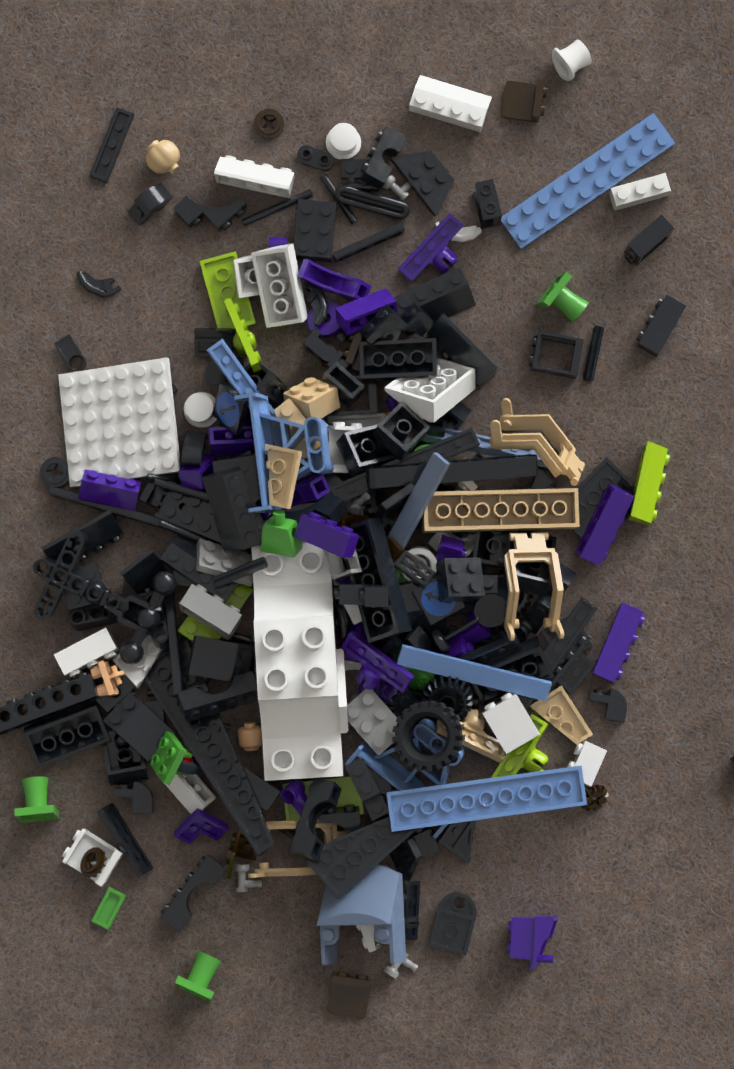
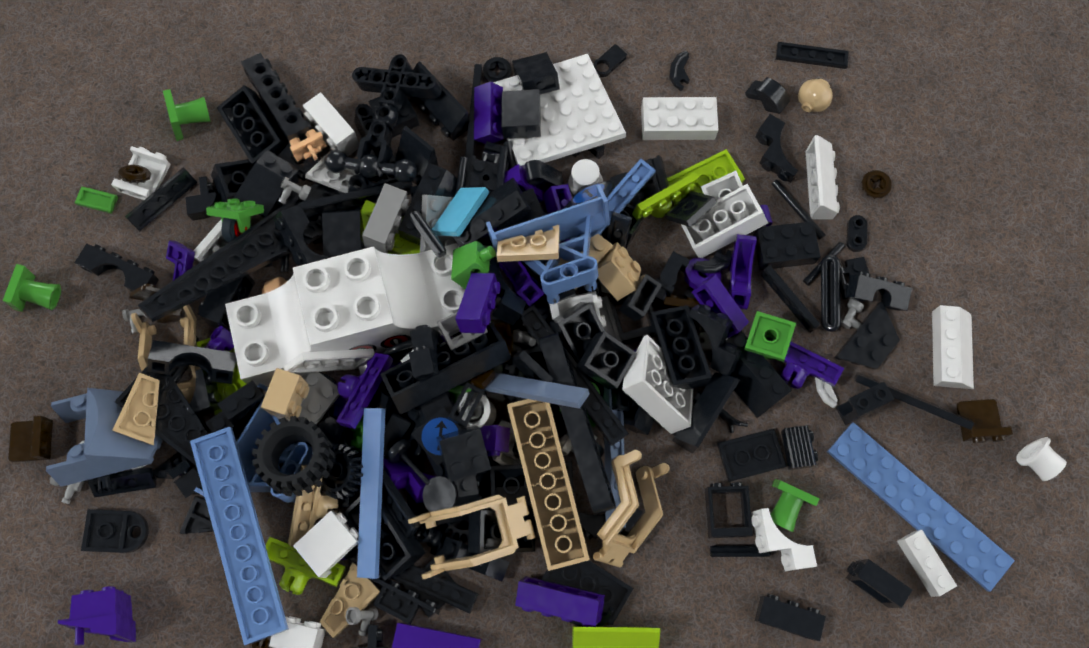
camera: 75 degrees right, 10 degrees down
(75, 432) = (536, 73): none -> black panel
(123, 456) = (521, 114): none -> black brick
(155, 299) = (679, 118): none -> white brick
(157, 690) = (289, 186): none -> light grey piece
(222, 536) = (460, 211): none -> medium azure tile
(260, 314) = (691, 208): none -> black plate
(343, 141) = (883, 254): white piece -> none
(354, 874) = (140, 410): none -> tan wing
(369, 734) = (285, 394): none -> tan brick
(406, 263) = (772, 328): none -> bright green plant
(474, 328) = (731, 420): none -> black bar
(492, 157) = (918, 402): none -> black tile
(509, 319) = (751, 455): none -> black tile
(512, 274) = (799, 447): none -> black brick
(581, 705) = (354, 615): none -> light grey piece
(591, 323) = (771, 539): none -> white arch

